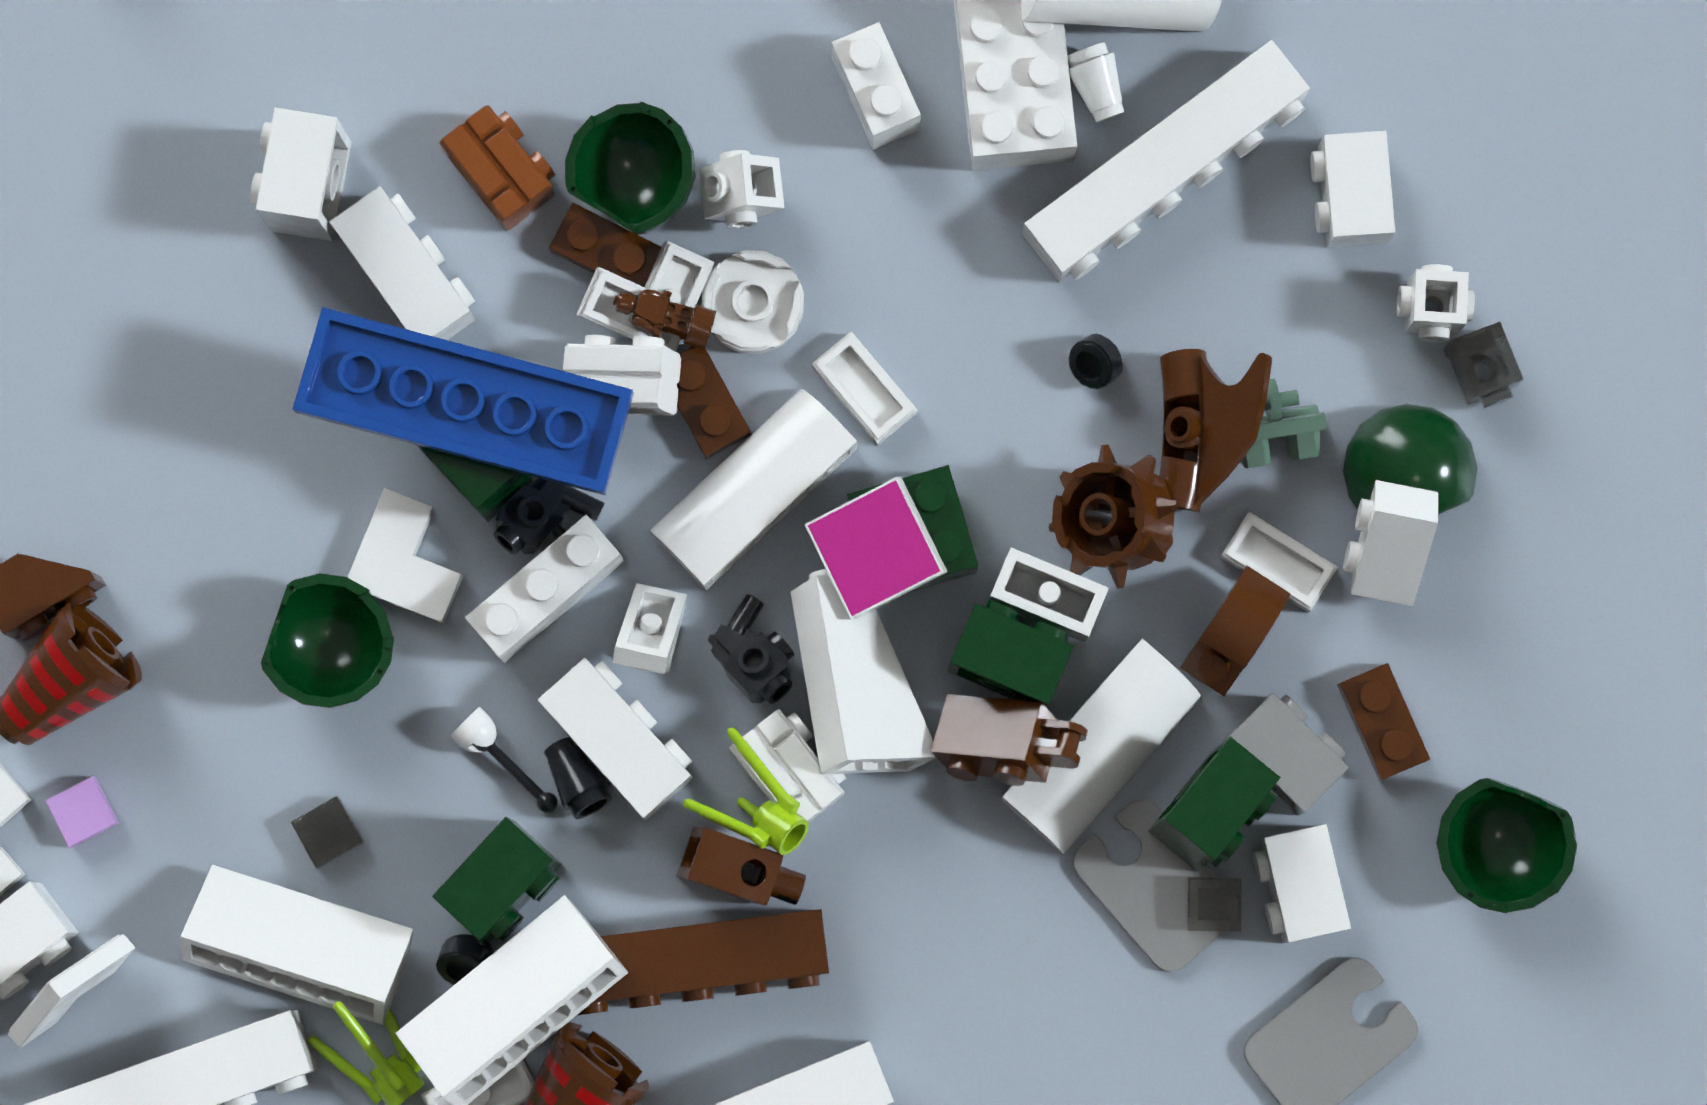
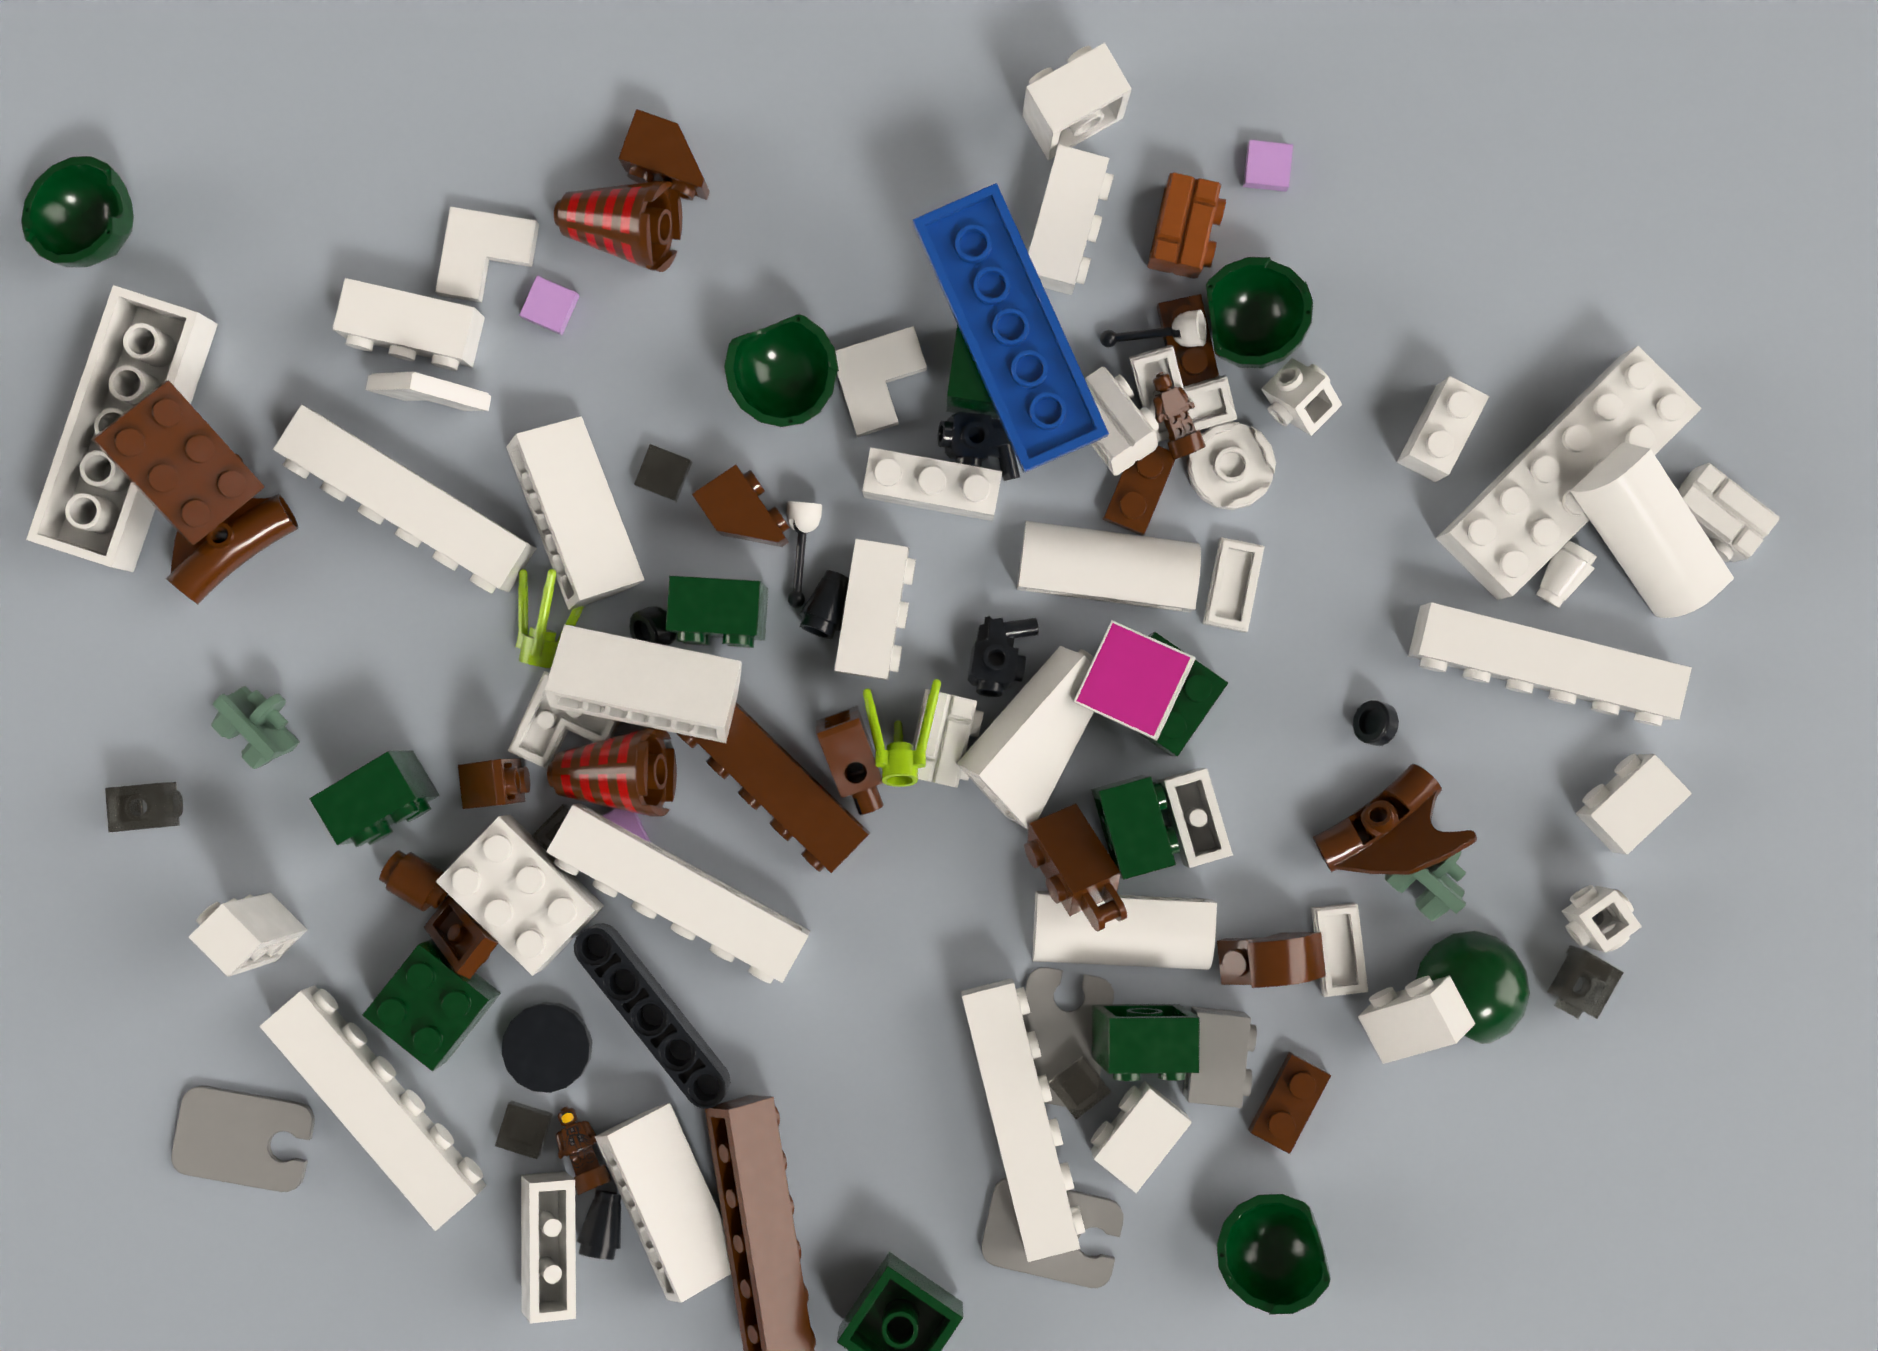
camera: 50 degrees right, 5 degrees up
(422, 789) = (738, 512): none -> reddish brown slope
(505, 47) = (1268, 165): none -> lavender tile
(594, 242) = (1187, 330): none -> hinge
(650, 629) = (961, 574): white slope -> none
(1114, 516) = (1298, 837): reddish brown brick -> none
(1199, 981) = (1021, 1120): none -> white brick

